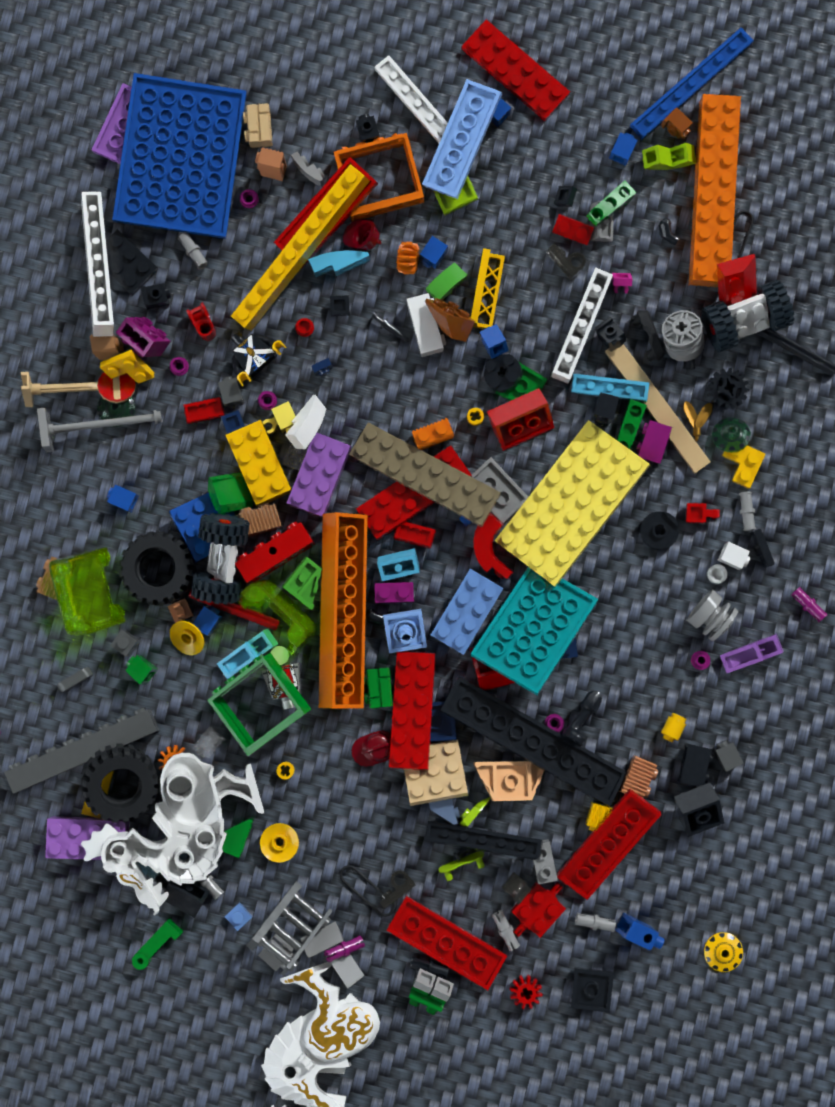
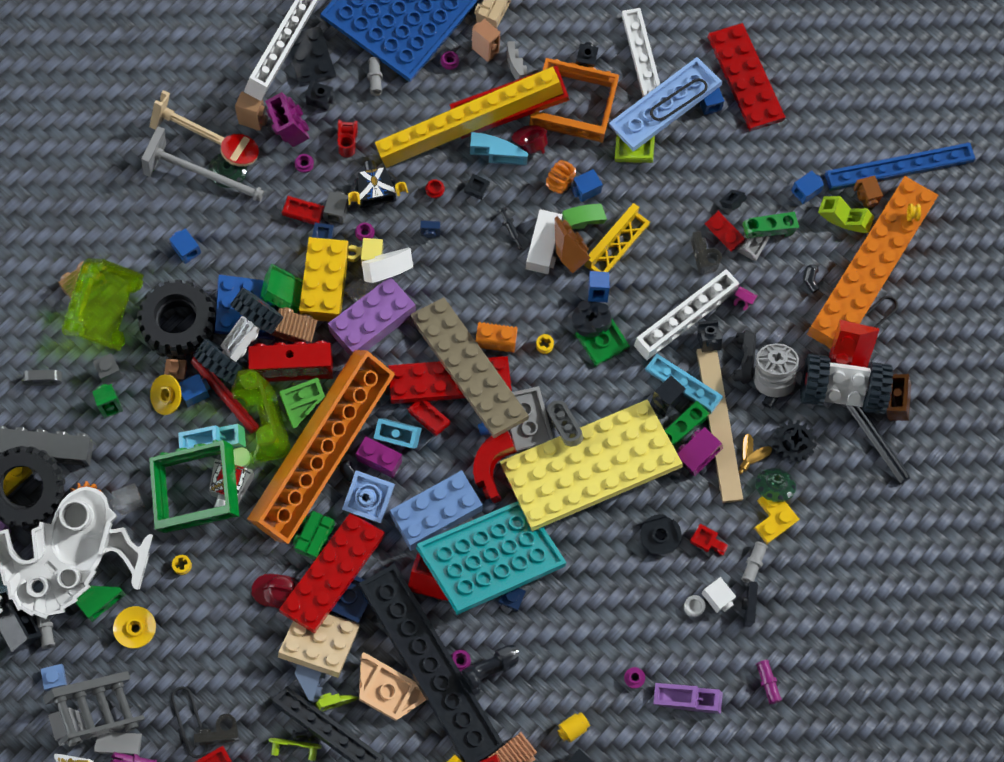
camera: 20 degrees right, 15 degrees down
(127, 363) = (261, 134): yellow plate -> none
(490, 111) = (673, 94): none -> black piece
(521, 419) = (585, 367): red slope -> none
(529, 474) = (565, 423): none -> dark grey plate
(712, 615) = (668, 639): light grey wheel -> none
(729, 127) = (913, 212): none -> yellow bush
(799, 303) = (900, 398): none -> reddish brown brick

